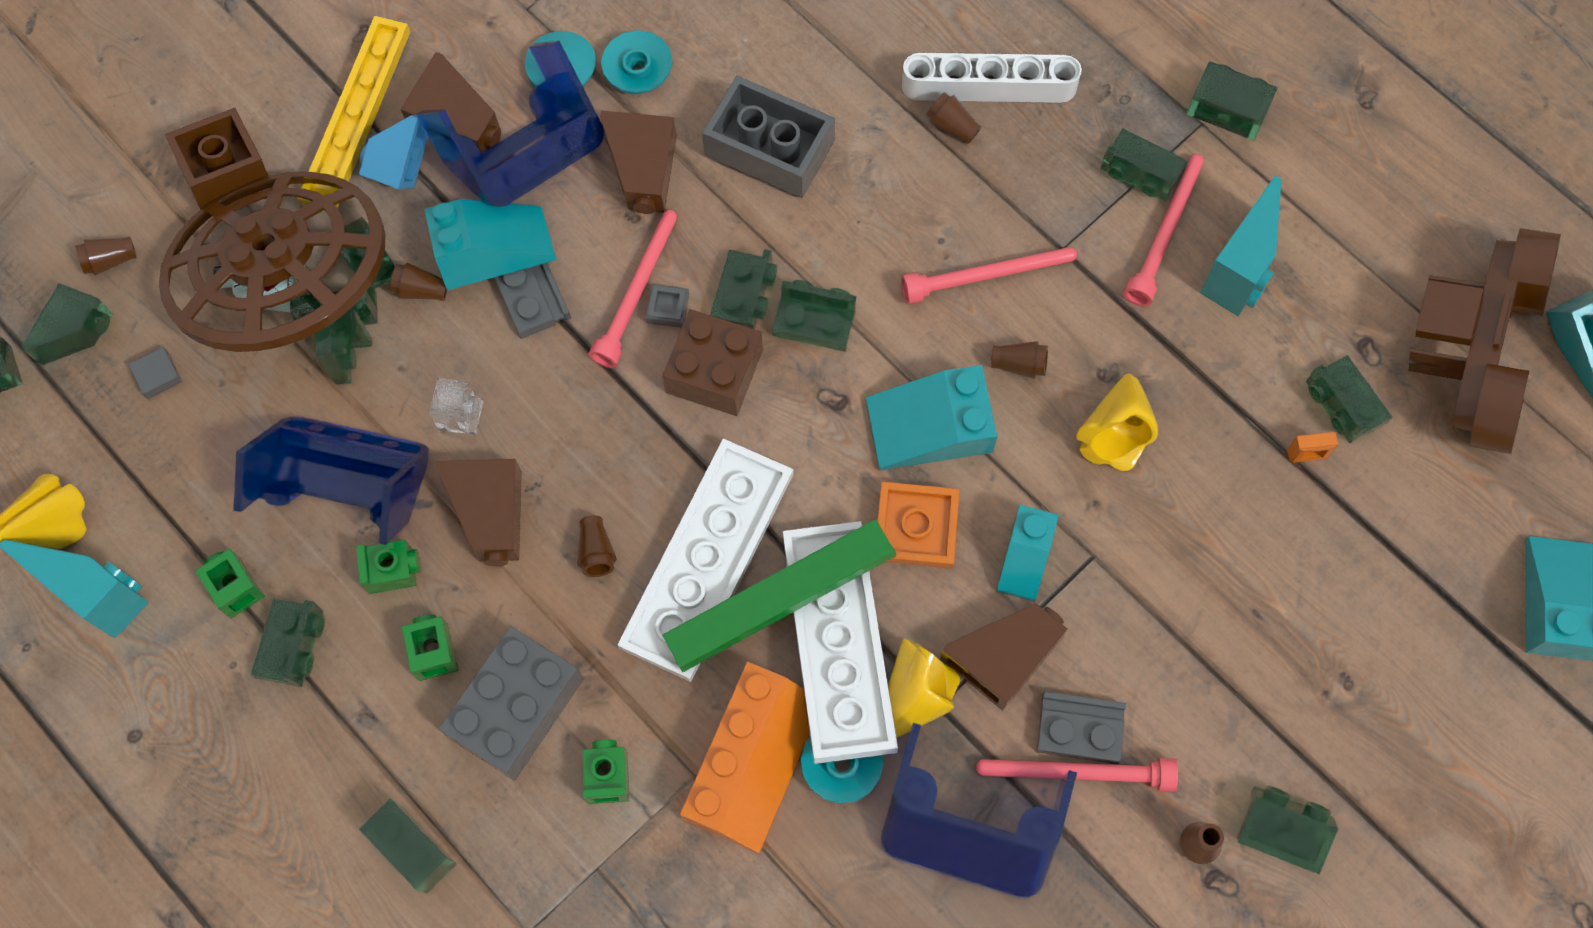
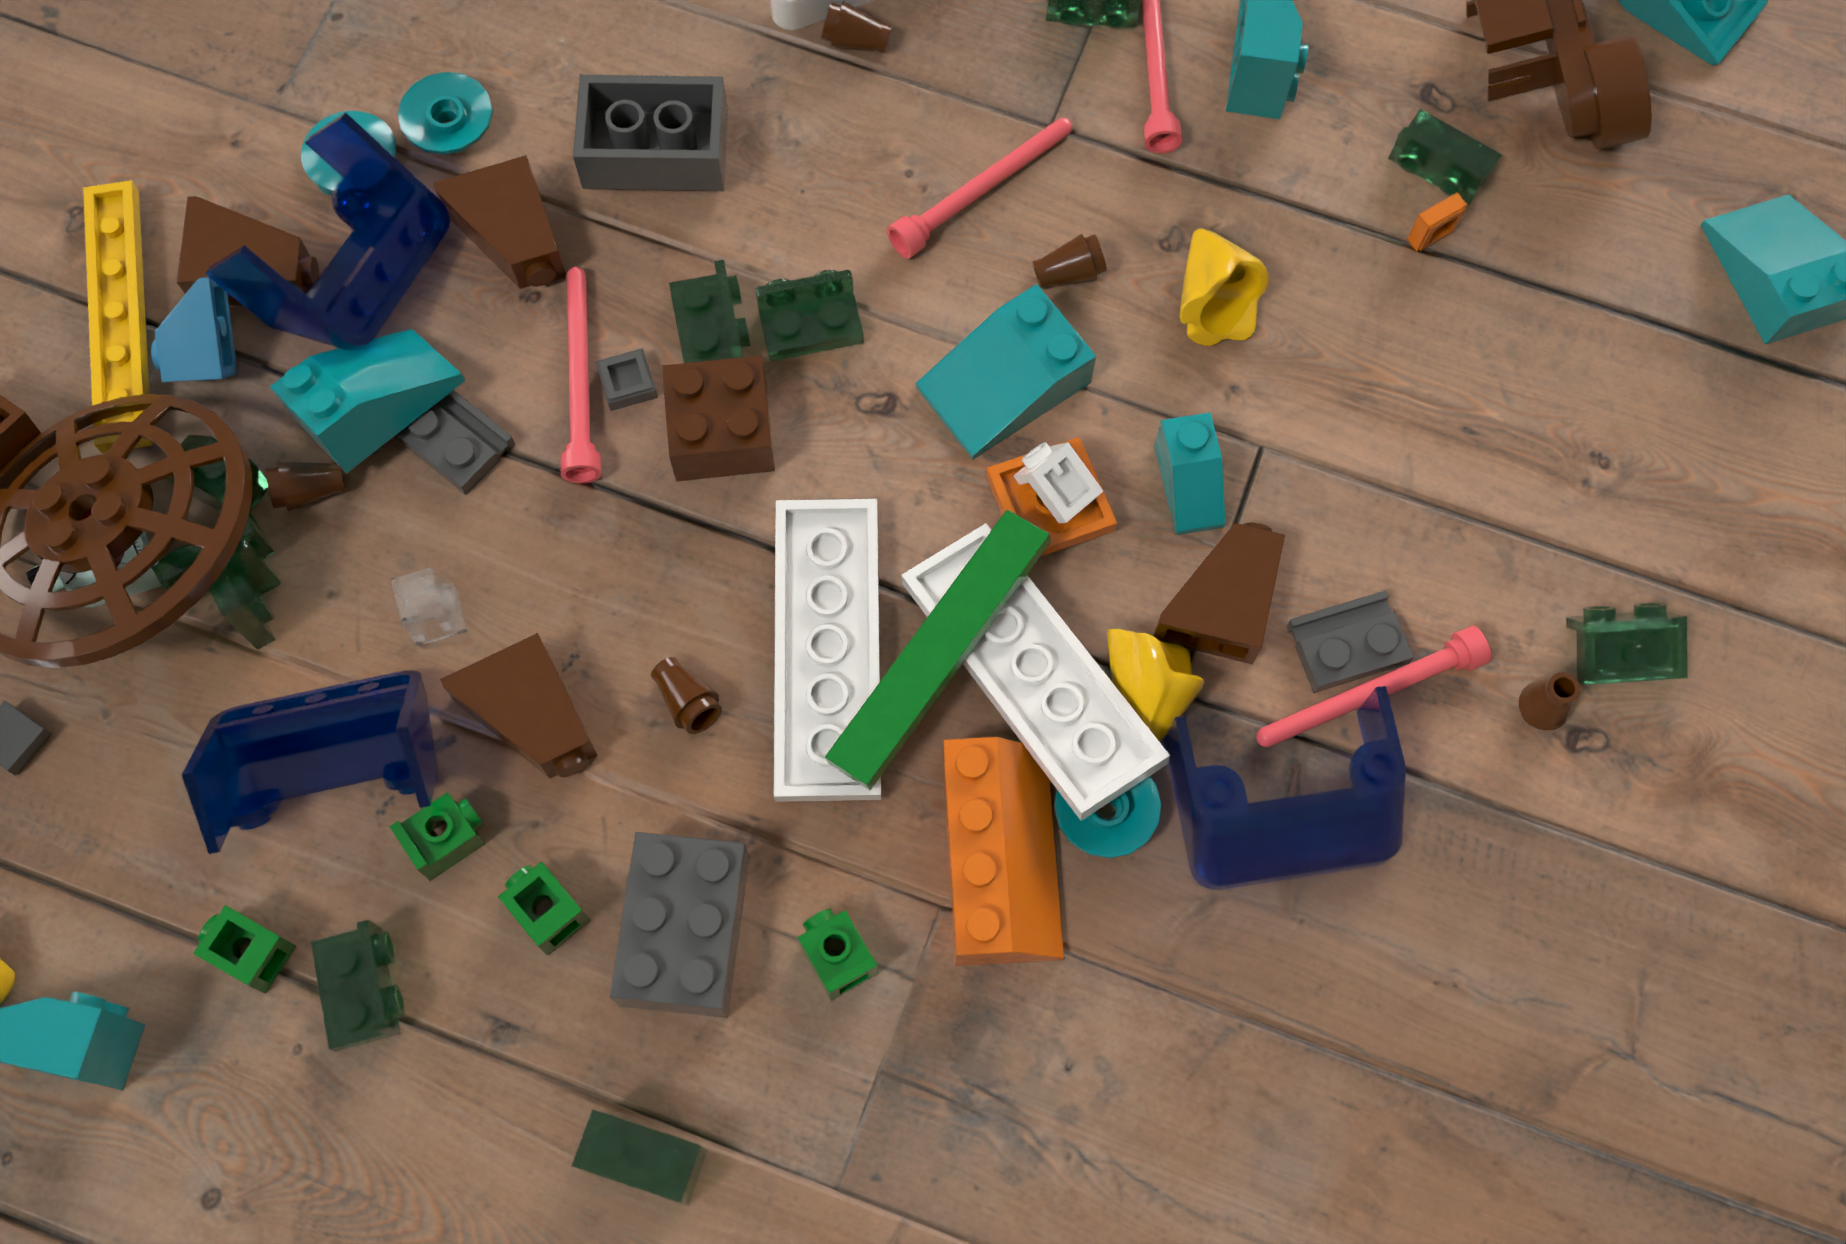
camera: 30 degrees left, 0 degrees up
(924, 514) = (1059, 479): none -> white bracket

